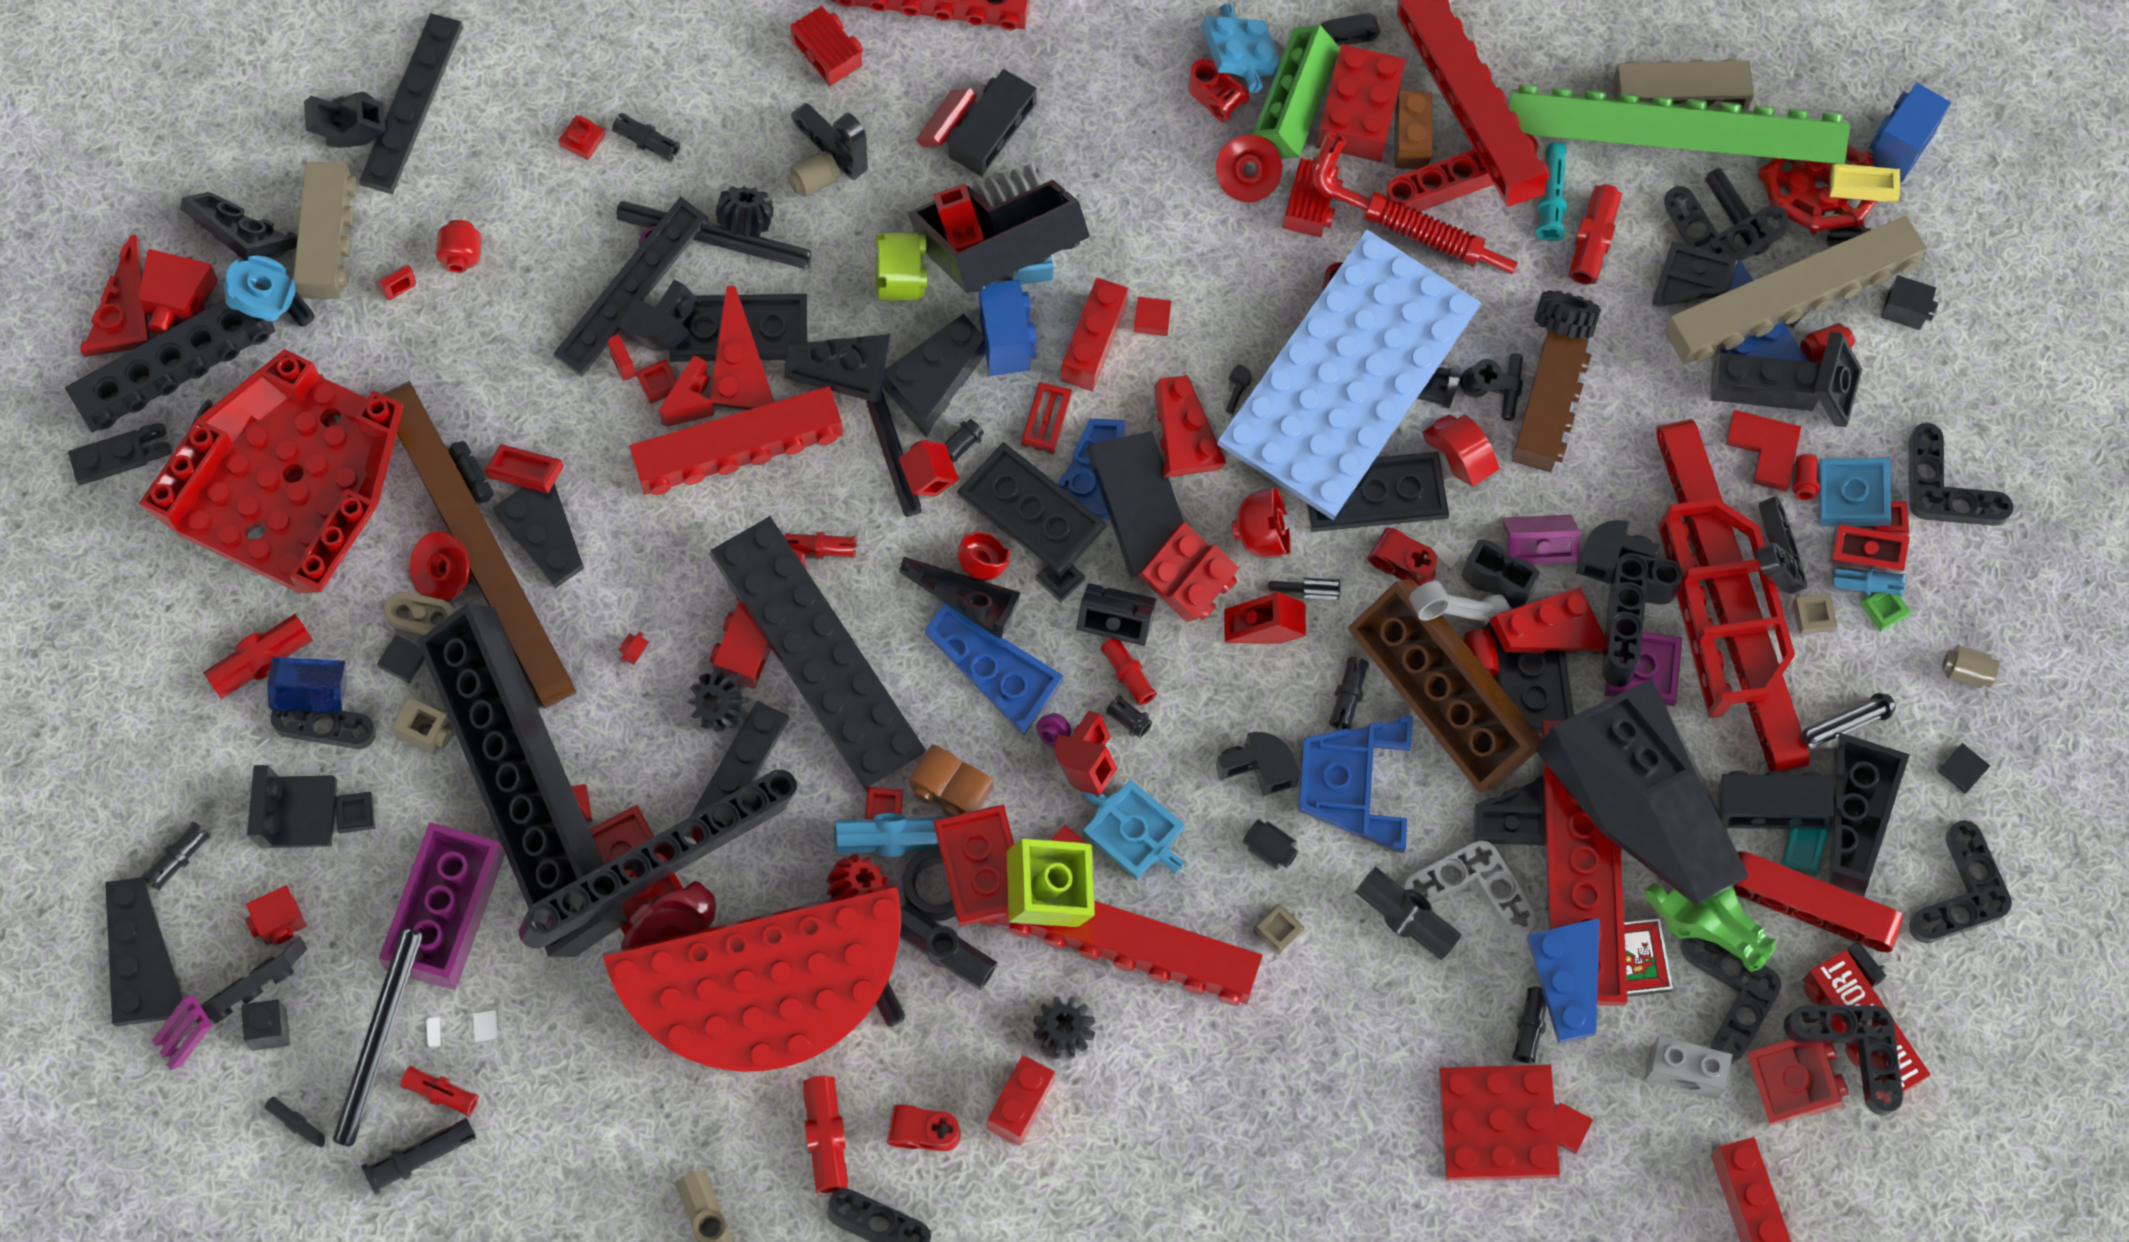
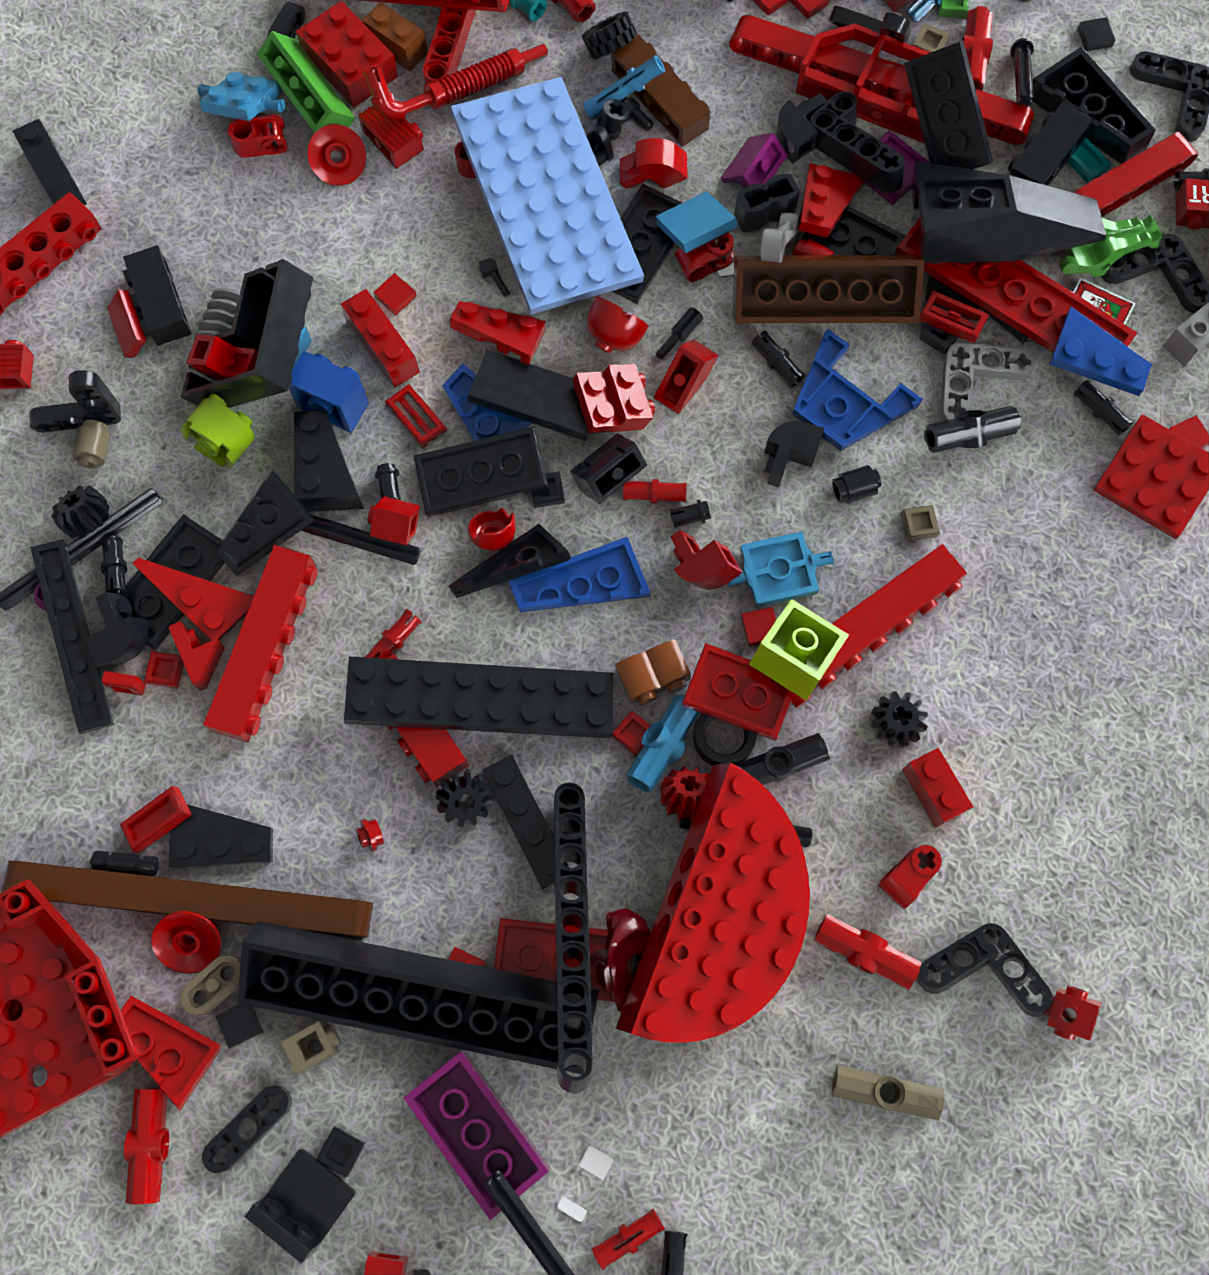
camera: 50 degrees left, 5 degrees up
(306, 684) = (204, 1121): clear blue brick -> none
(343, 615) = (168, 1050): none -> red wing
(717, 273) = (114, 565): none -> black pin
(1051, 726) = (662, 572): magenta plate -> none
(1426, 523) = (696, 221): none -> dark azure tile
(1517, 849) = (950, 320): none -> red tile
(1529, 368) = (633, 81): none -> dark azure pin
(1722, 672) = (949, 108): none -> black tile
(1841, 661) = (978, 43): none -> red piece

